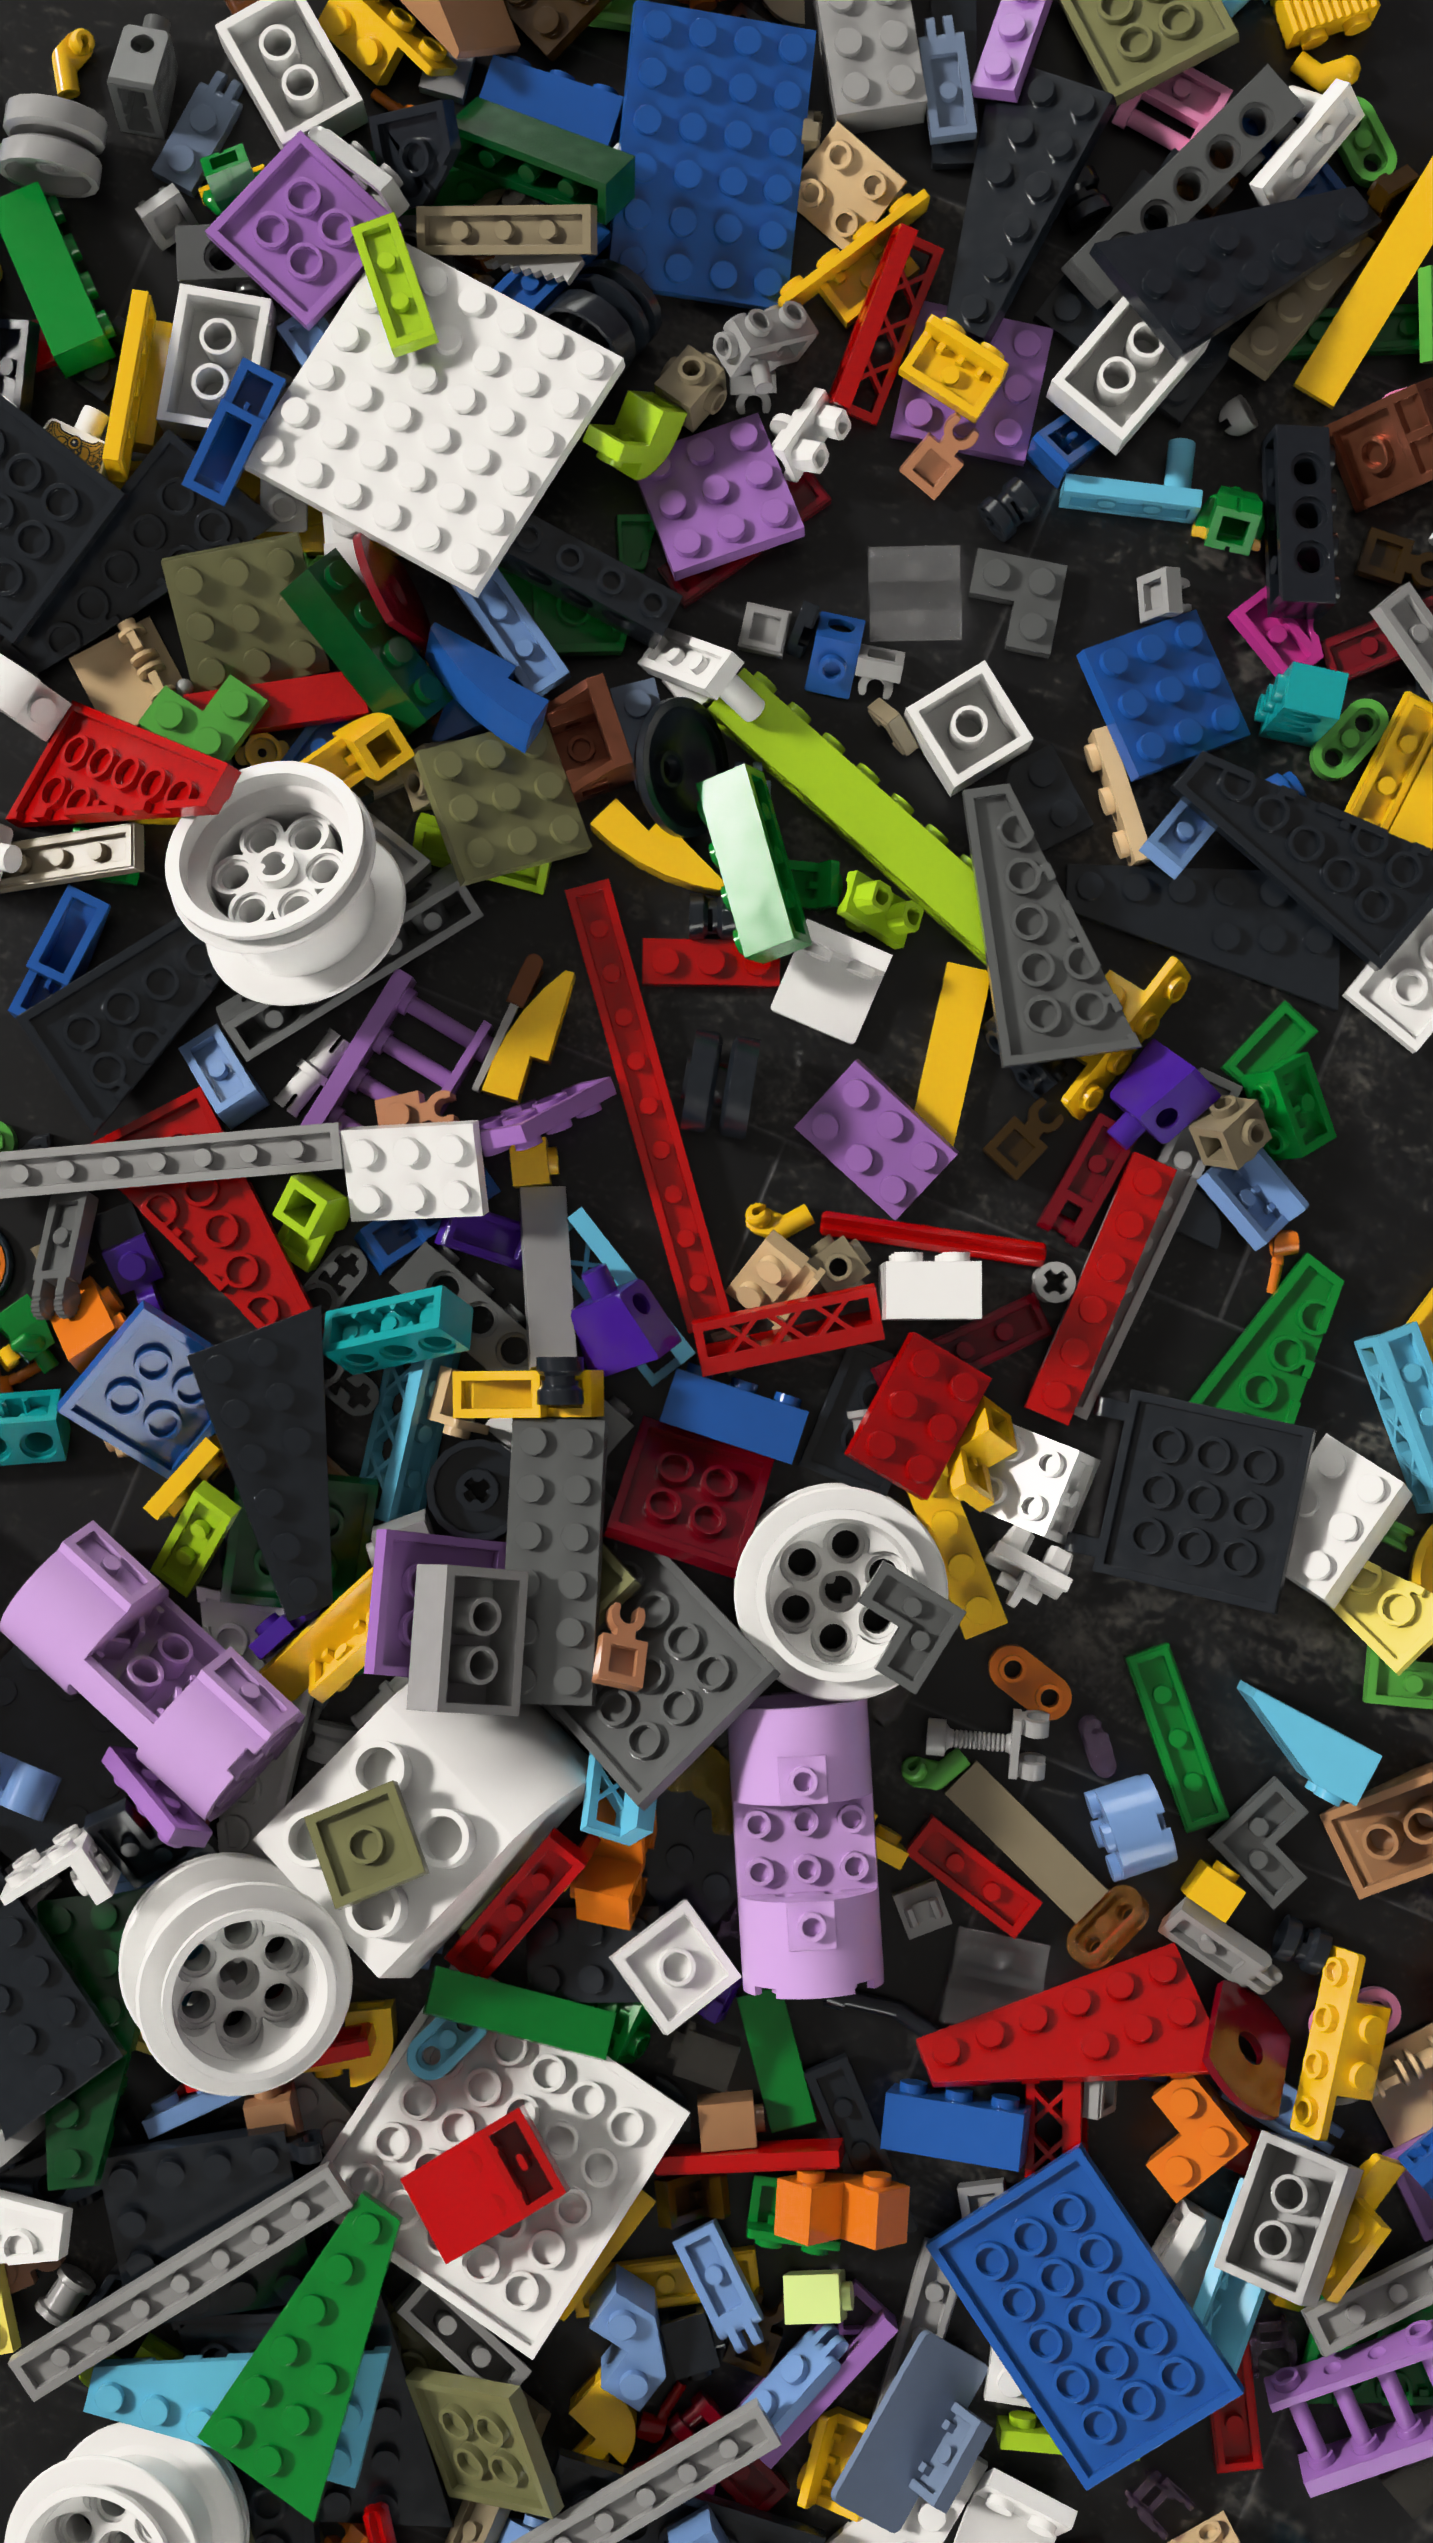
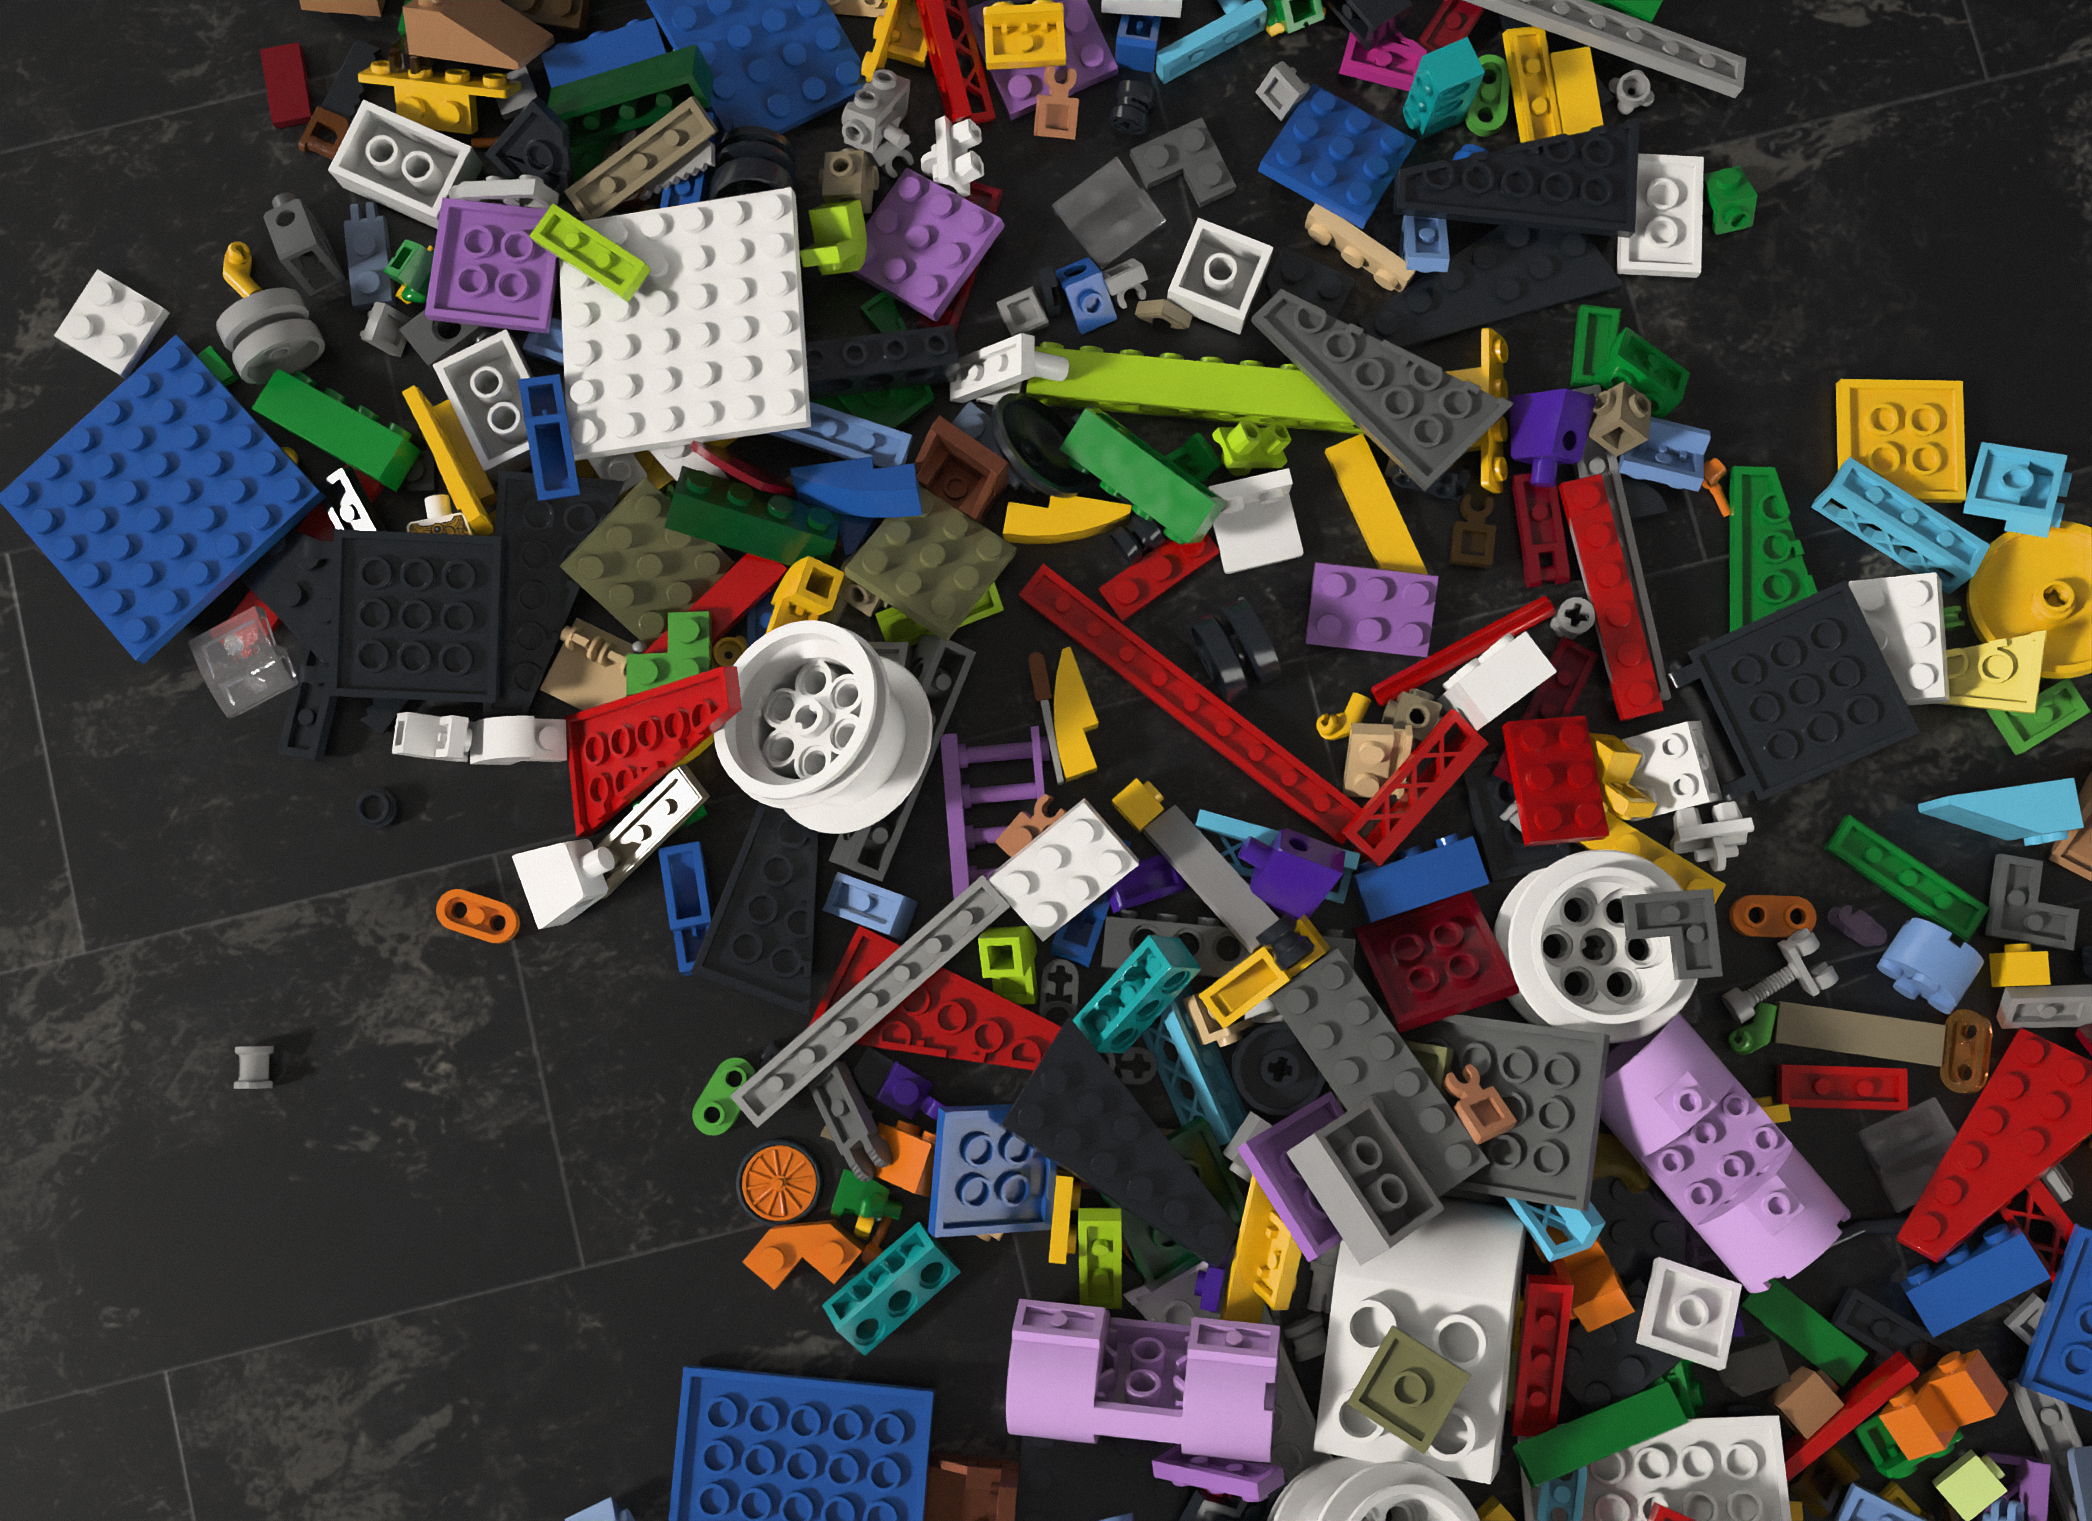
camera: 25 degrees left, 5 degrees down
(312, 1073) = (932, 856): white pin -> none
(527, 1121) = (1120, 774): medium lavender plate -> none
(921, 1908) = (1822, 1138): light grey tile -> none

